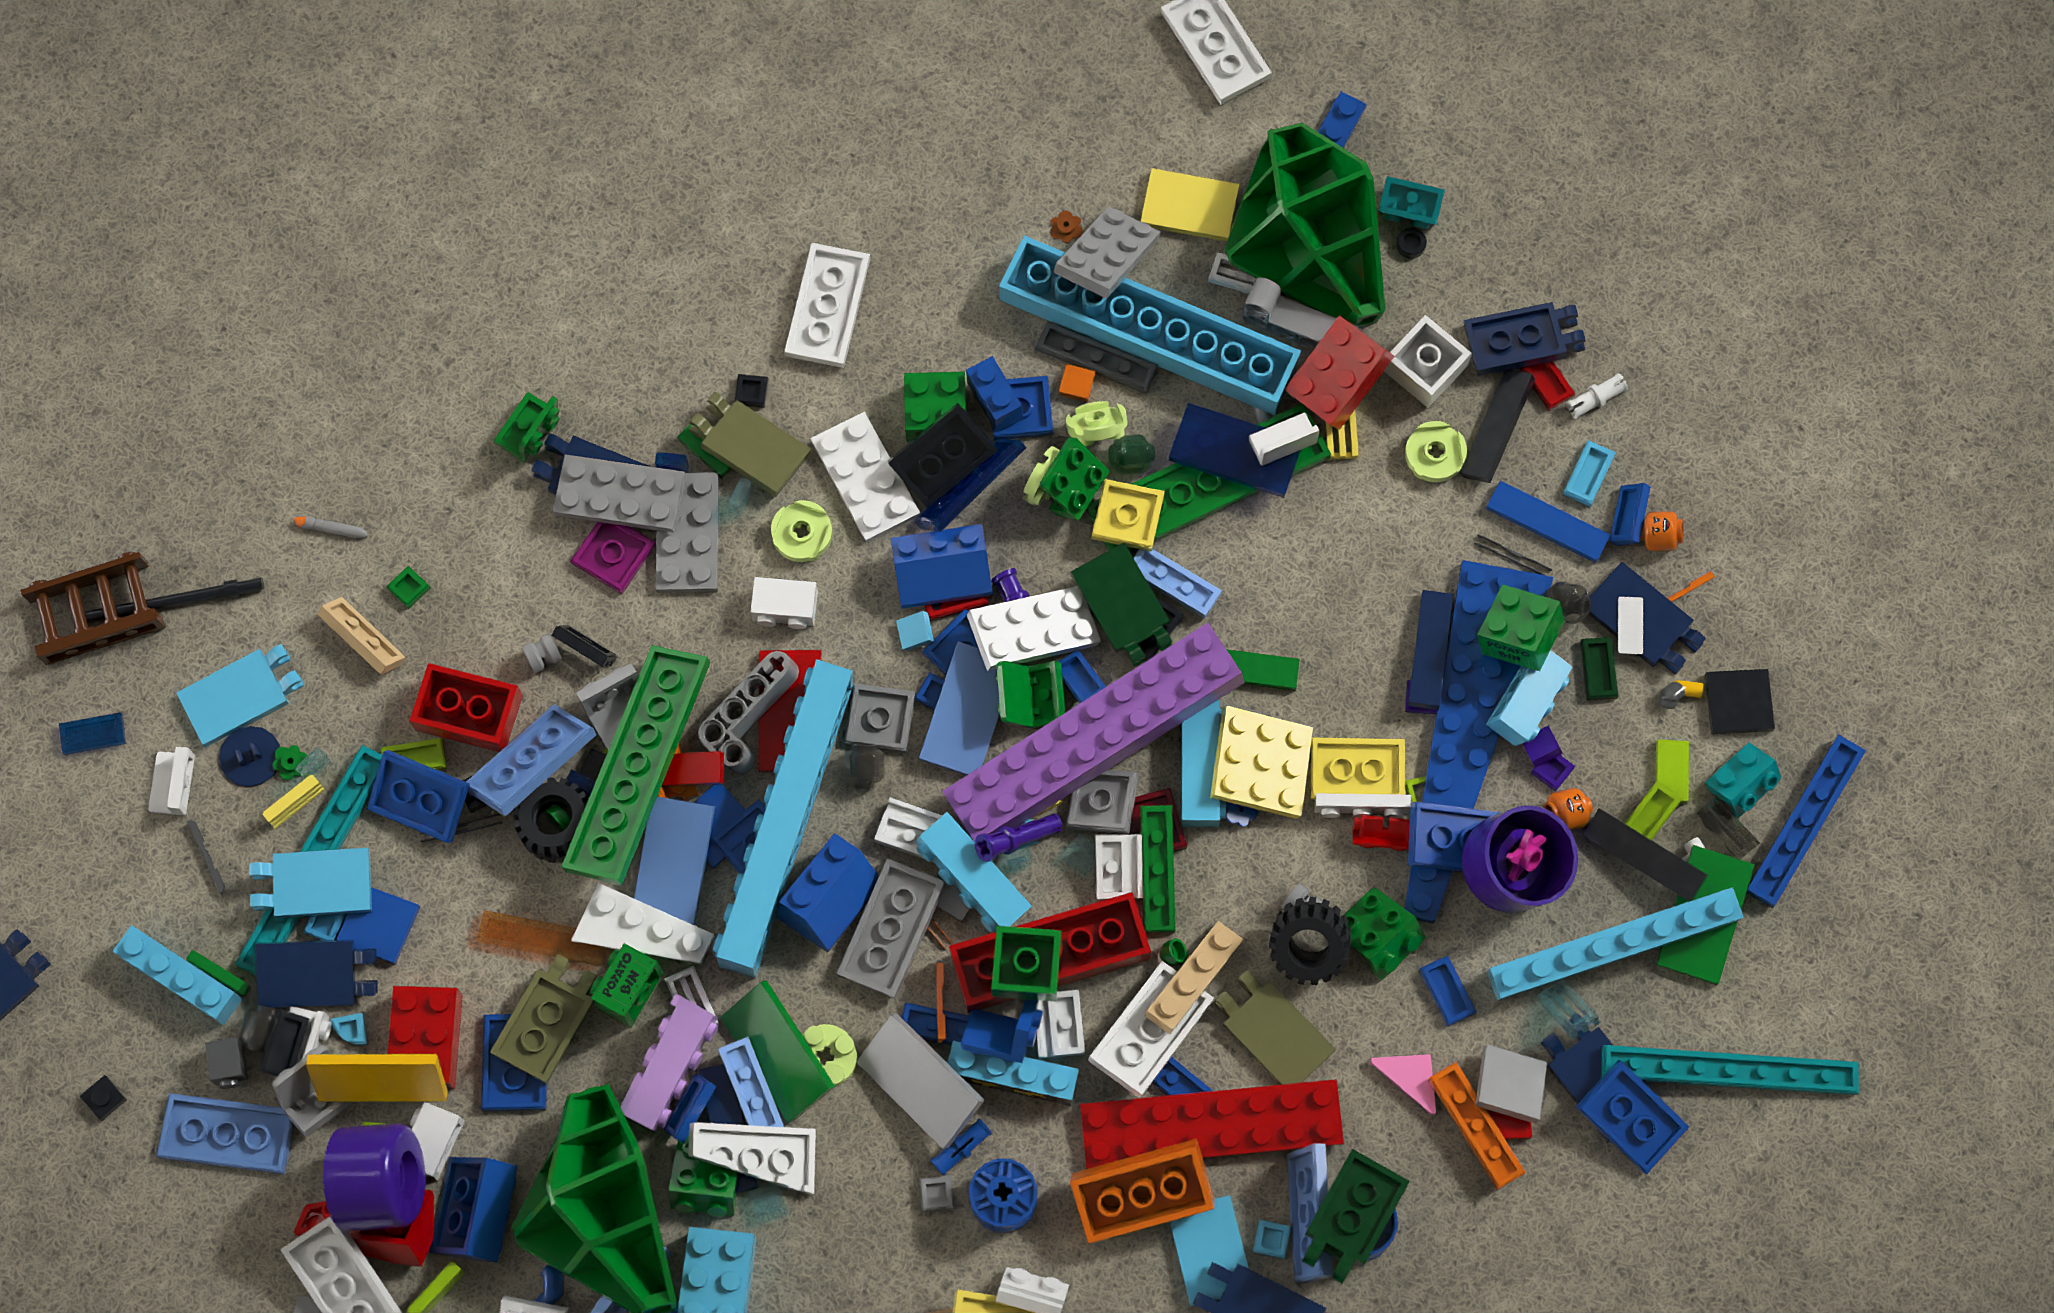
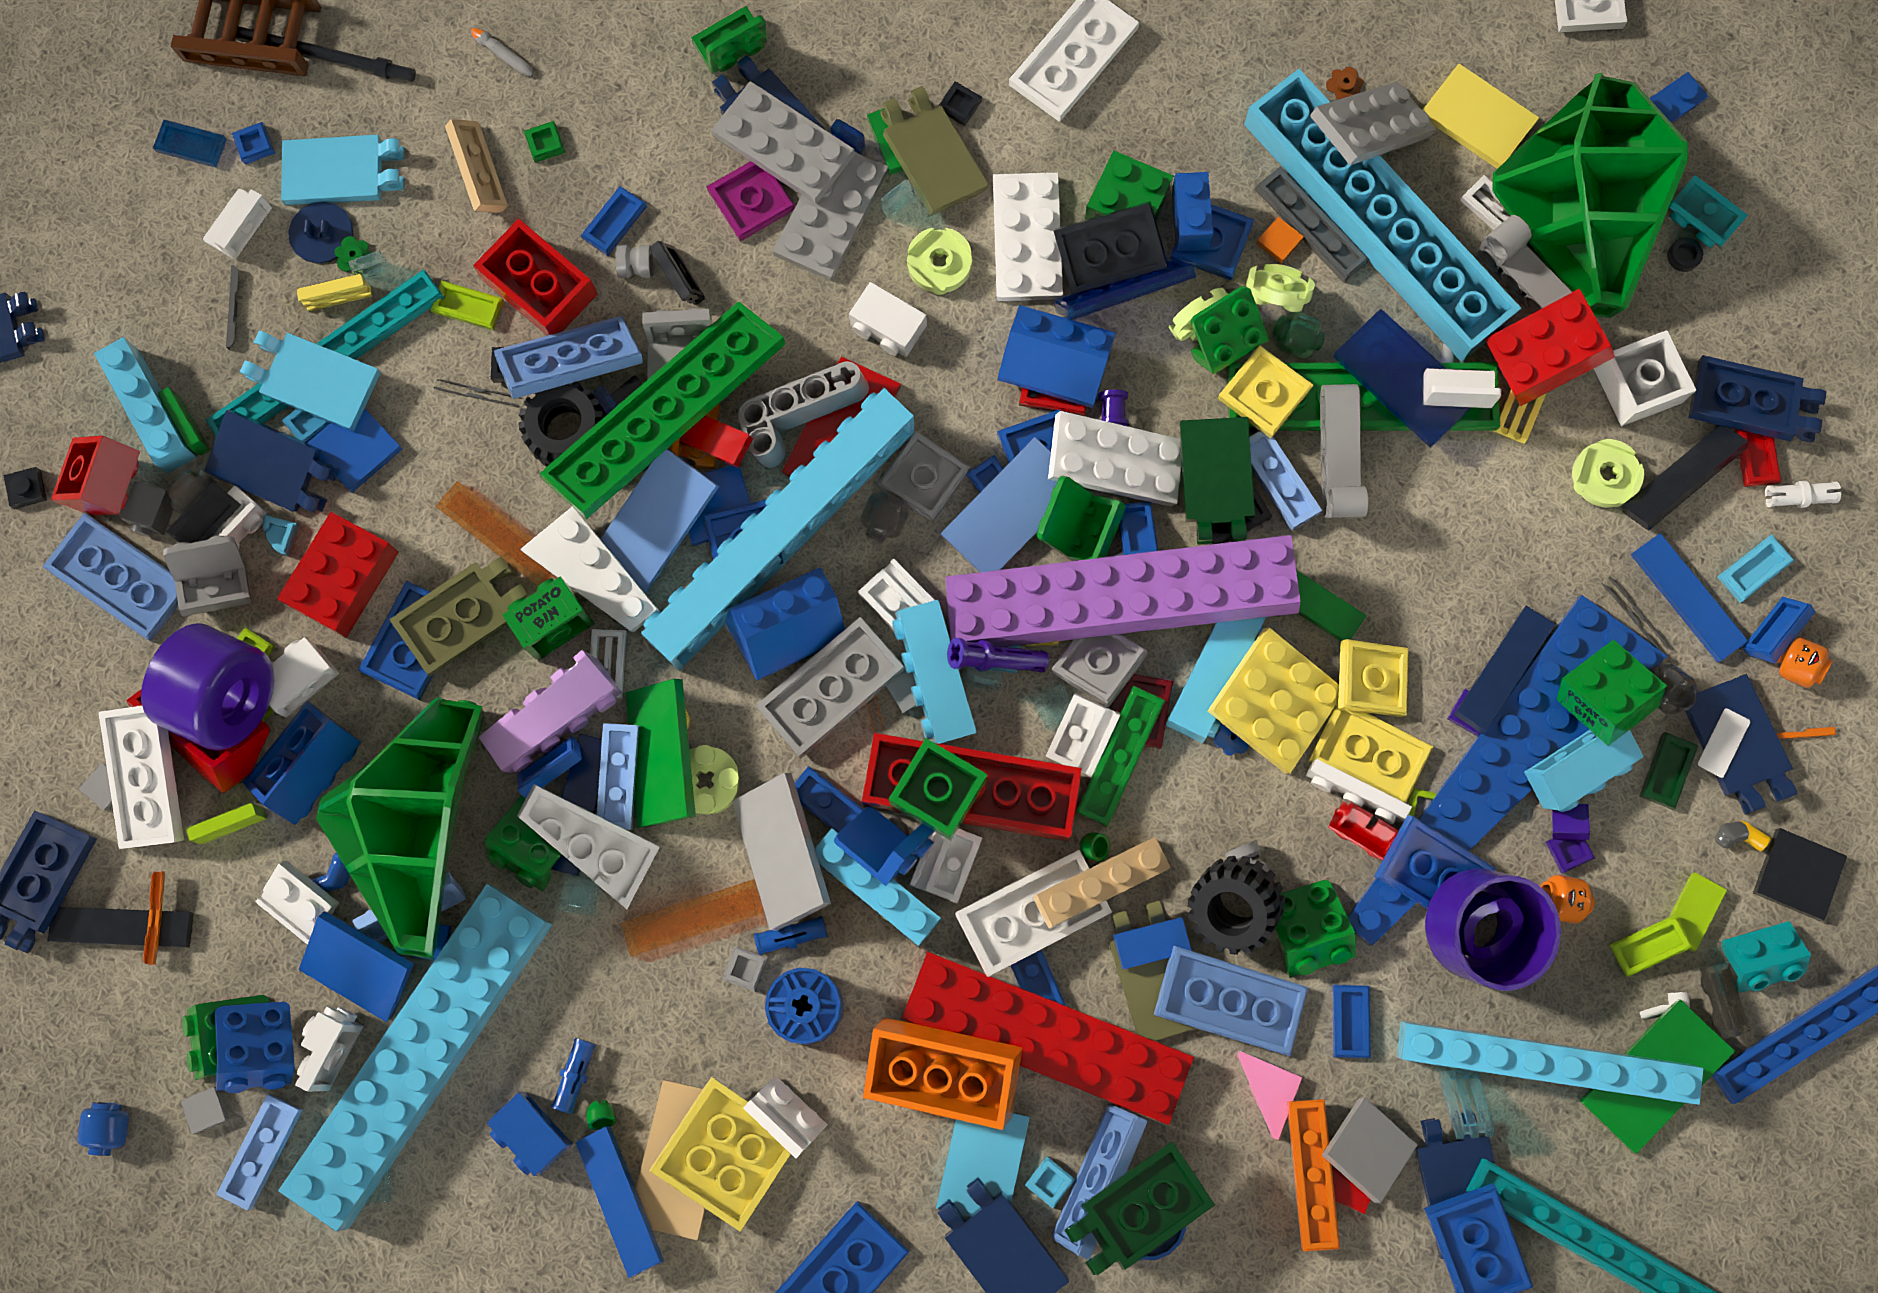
camera: 30 degrees right, 5 degrees up
(149, 706) = (253, 143): none -> blue tile
(169, 1054) = (96, 475): none -> red brick
(377, 1077) = (266, 592): yellow tile -> none
(418, 796) = (448, 342): blue tile -> none
(504, 627) = (613, 221): none -> blue tile
(558, 817) = (569, 423): green tile -> none
(872, 1173) = (692, 918): none -> clear orange tile
(915, 631) = (1000, 408): medium azure tile -> none
(941, 1030) = (834, 796): orange piece -> none
(1214, 535) = (1341, 452): none -> light grey beam
(1258, 1006) = (1151, 942): none -> blue tile
(1330, 707) = (1373, 678): none -> light yellow tile
(1344, 1021) = (1231, 1001): none -> medium blue tile
(1527, 855) = (1502, 929): dark pink animal -> none
(1645, 855) = (1625, 985): black tile -> none

